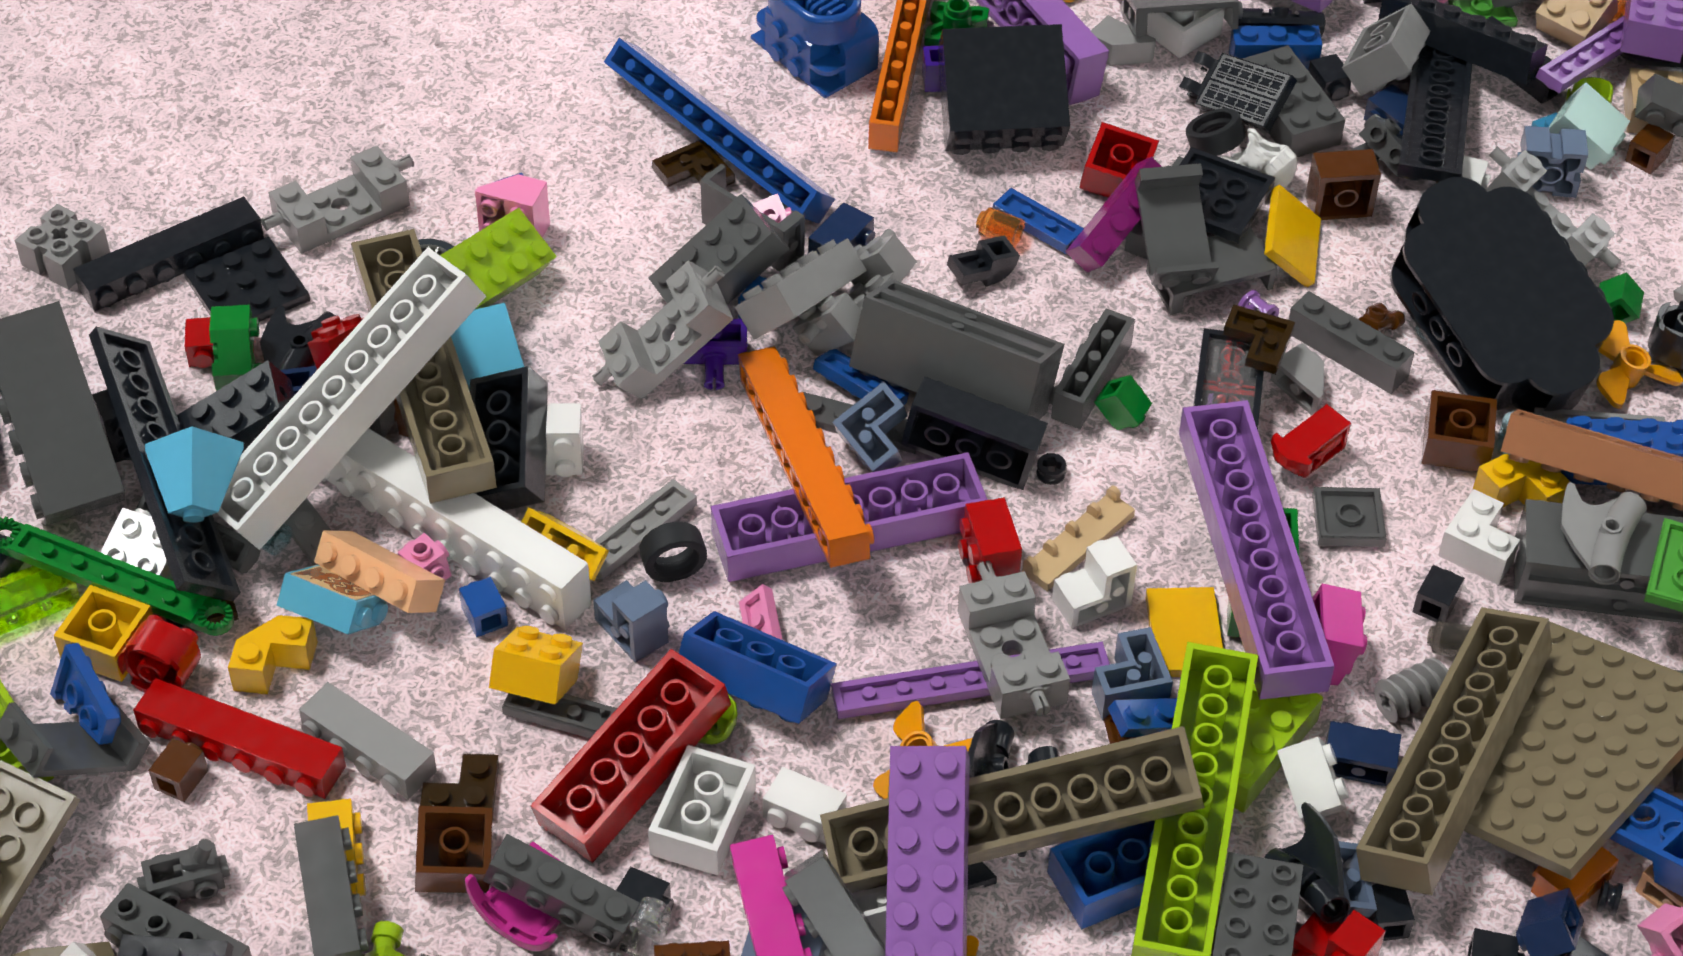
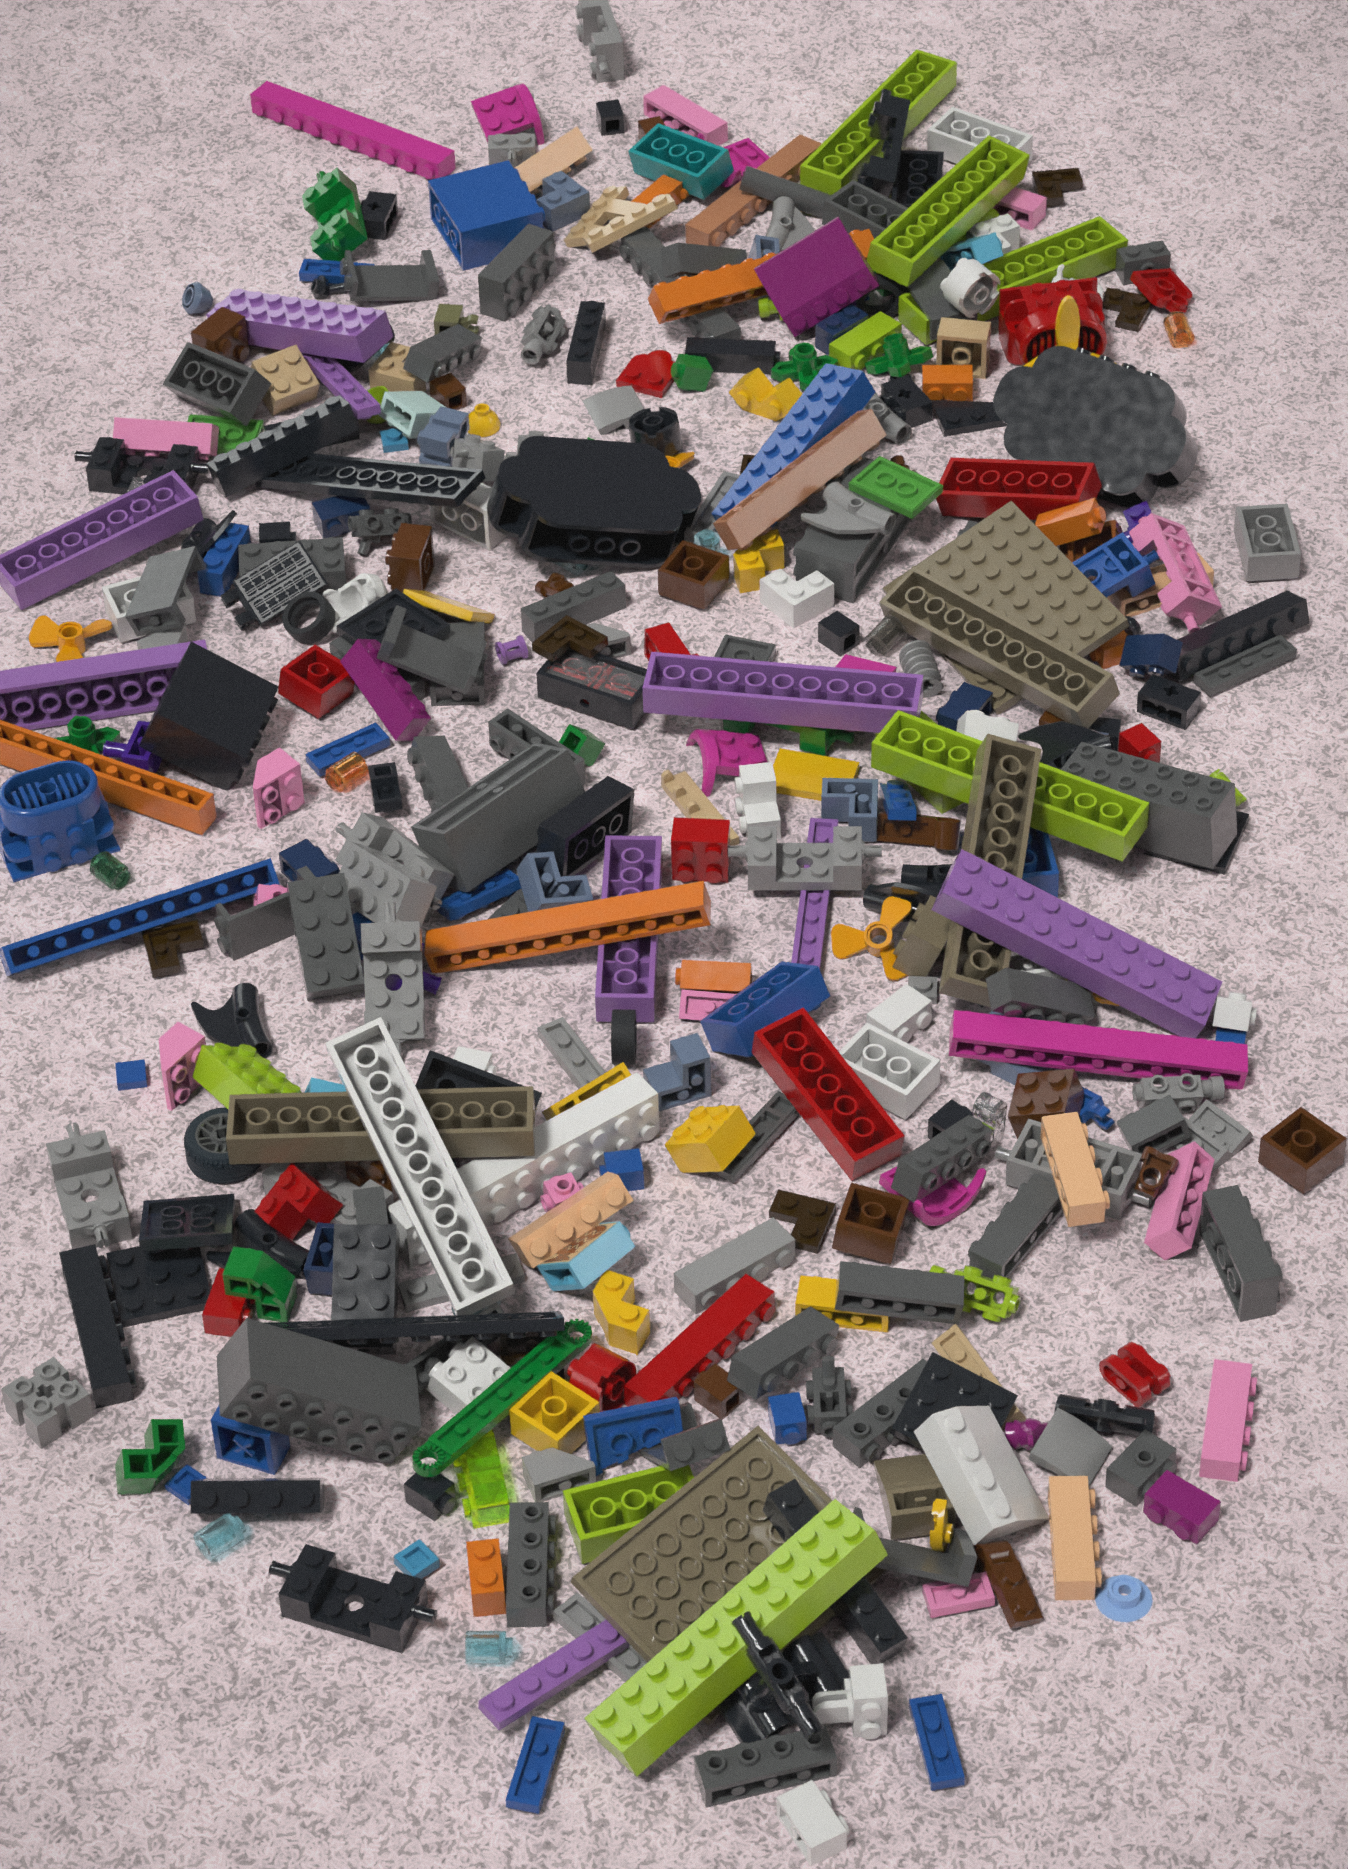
camera: 70 degrees left, 5 degrees down
(35, 654) = (553, 1471): none -> light grey slope
(148, 839) = (787, 1418): none -> blue brick
(193, 470) = (445, 1295): medium azure slope -> none
(227, 809) = (783, 1353): none -> dark grey brick
(308, 277) = (187, 1223): none -> black plate
(601, 242) = (236, 1021): none -> black pin
(782, 94) = (110, 870): none -> clear green brick
(801, 612) = (713, 976): none -> orange brick
(936, 172) = (276, 787): none -> bright pink slope
(1027, 294) = (436, 769): none -> dark grey brick
(1173, 539) = (724, 752): none -> dark pink piece
(1386, 50) = (279, 489): light grey brick -> none
(1626, 191) = (483, 421): none -> yellow brick

